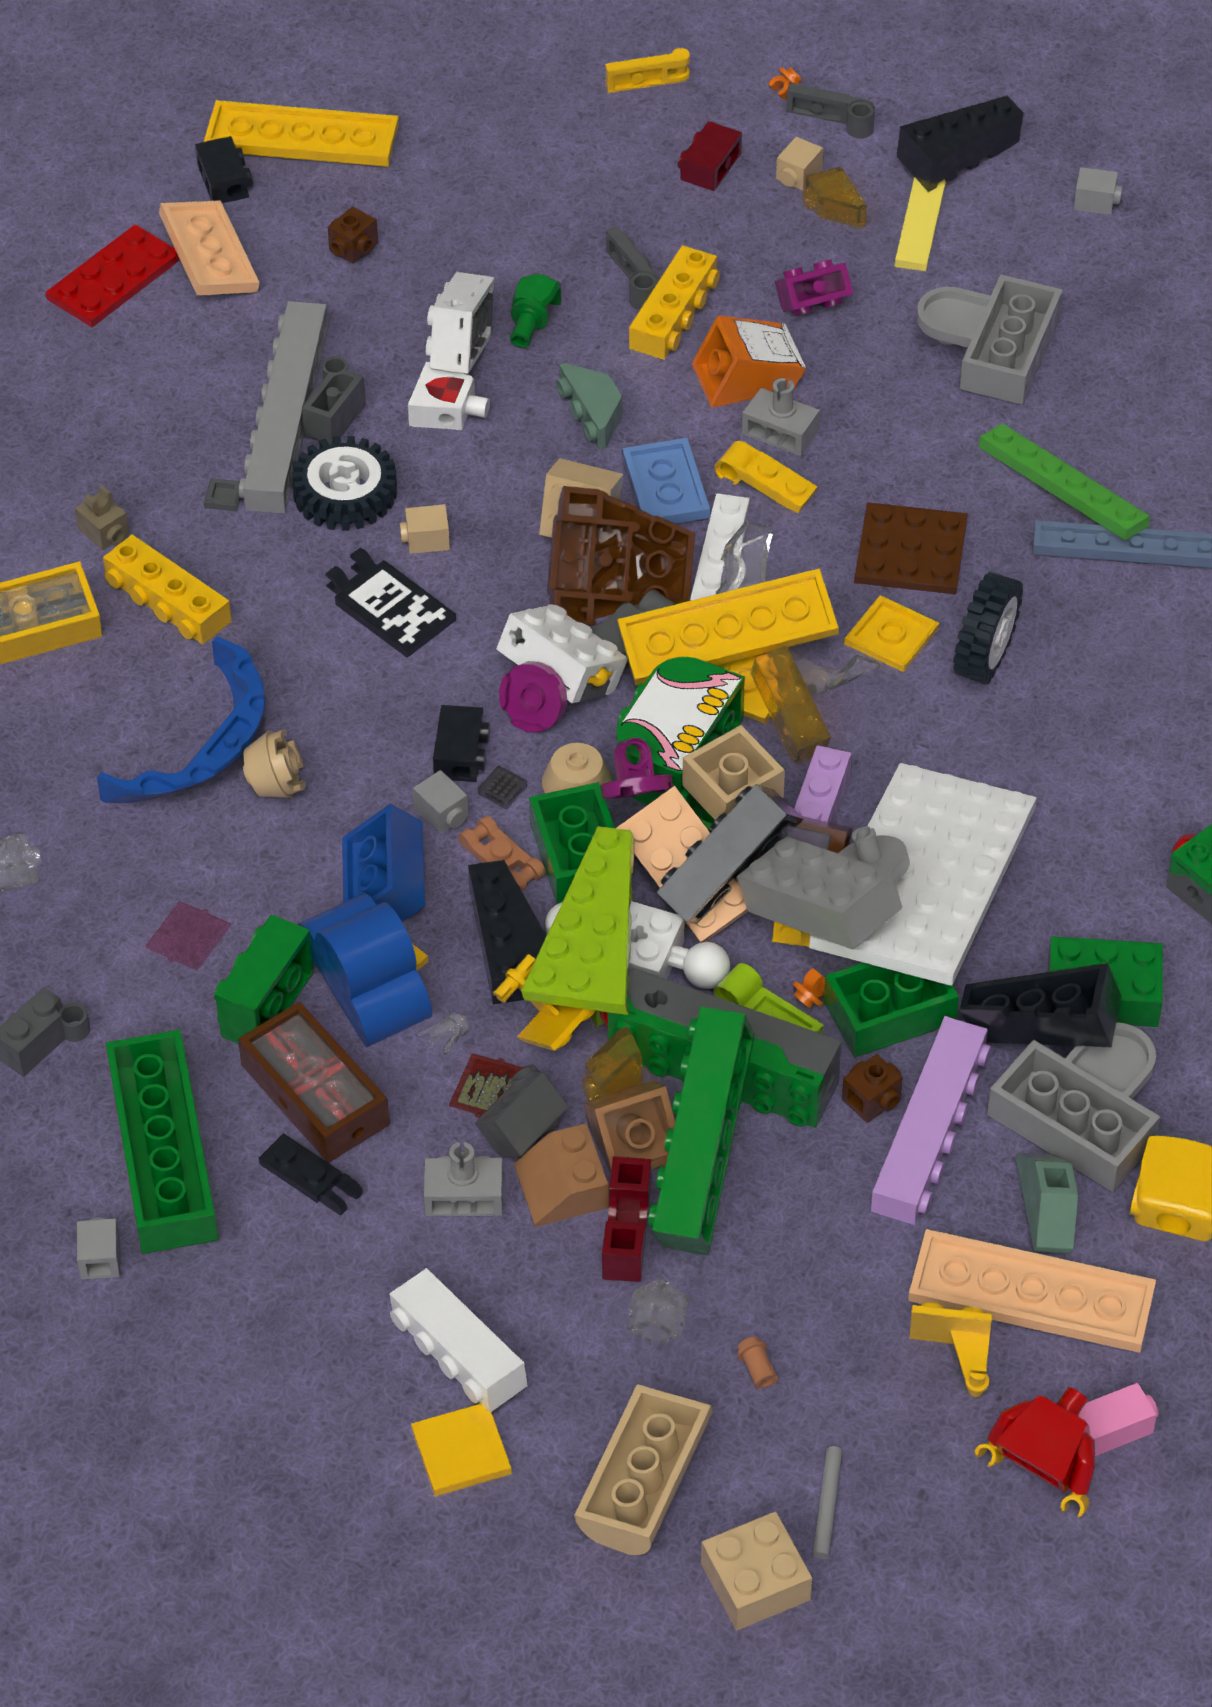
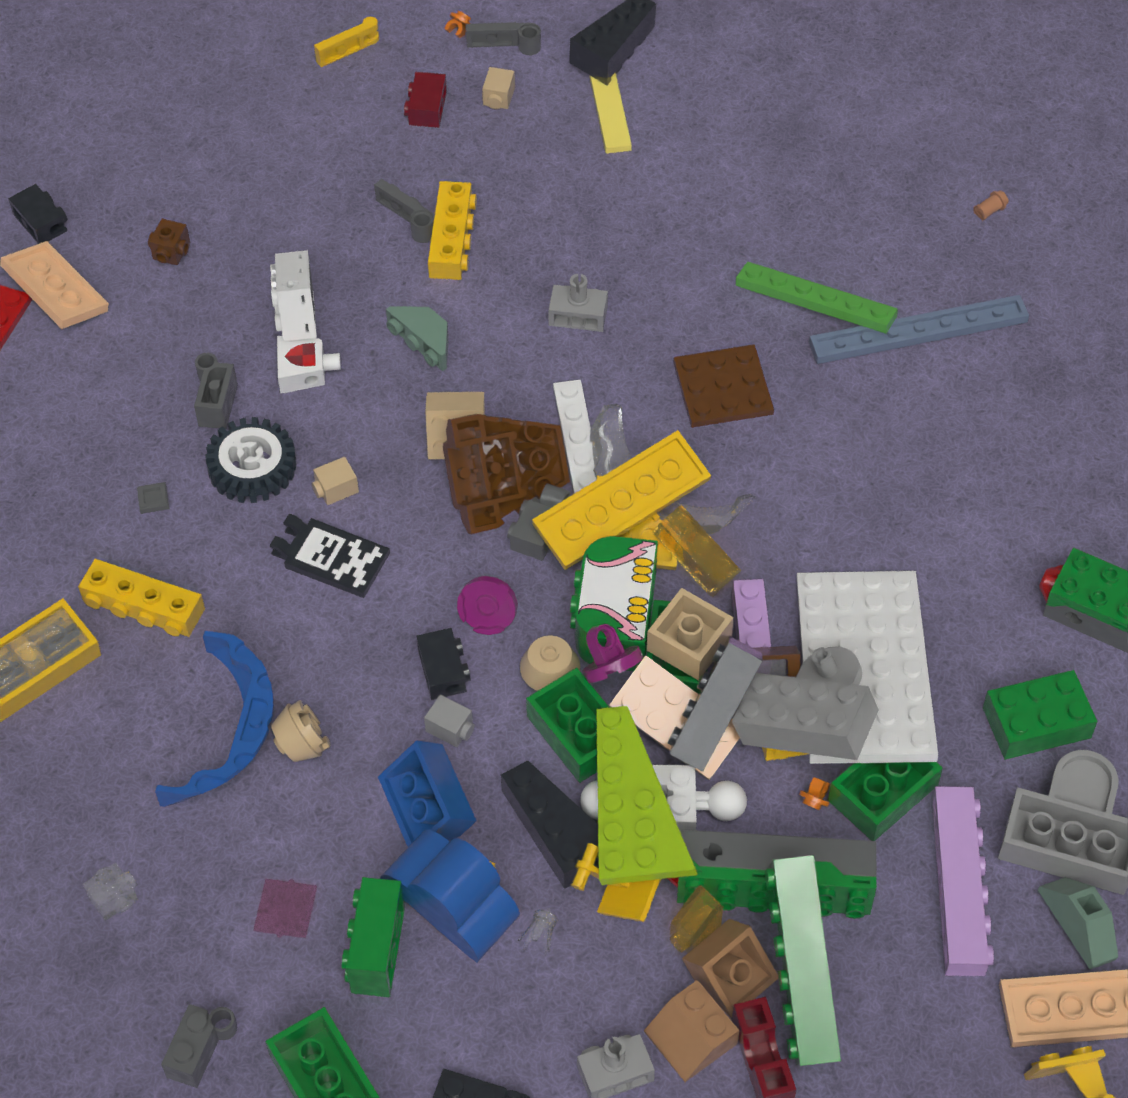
camera: 20 degrees left, 5 degrees up
(102, 519) = (61, 551): dark tan brick -> none
(280, 420) = (175, 408): light grey brick -> none
(305, 132) = (91, 164): yellow plate -> none
(314, 1081) = (452, 1014): brick -> none
(482, 1084) = (594, 966): piece -> none
(501, 848) = (514, 749): nougat plate -> none
(502, 787) = (491, 690): clear smoke tile -> none
(522, 1113) = (636, 984): dark grey hinge -> none
(529, 305) = (339, 264): green piece -> none
(580, 658) = (495, 553): white piece -> none
(666, 480) = (509, 384): medium blue plate -> none
(744, 357) = (530, 264): orange slope -> none
(746, 989) = (767, 817): lime plate -> none
(765, 475) = (584, 355): yellow plate -> none
(823, 284) = (559, 186): magenta brick -> none
(835, 198) = (539, 109): clear yellow slope -> none
(872, 1088) = (904, 867): reddish brown brick -> none
(891, 633) = (740, 462): yellow tile -> none
(988, 627) = (824, 440): black wheel -> none
(1002, 332) = (717, 183): light grey brick -> none
(1047, 1007) = (1017, 756): black wedge -> none
(1097, 191) = (734, 51): light grey brick -> none

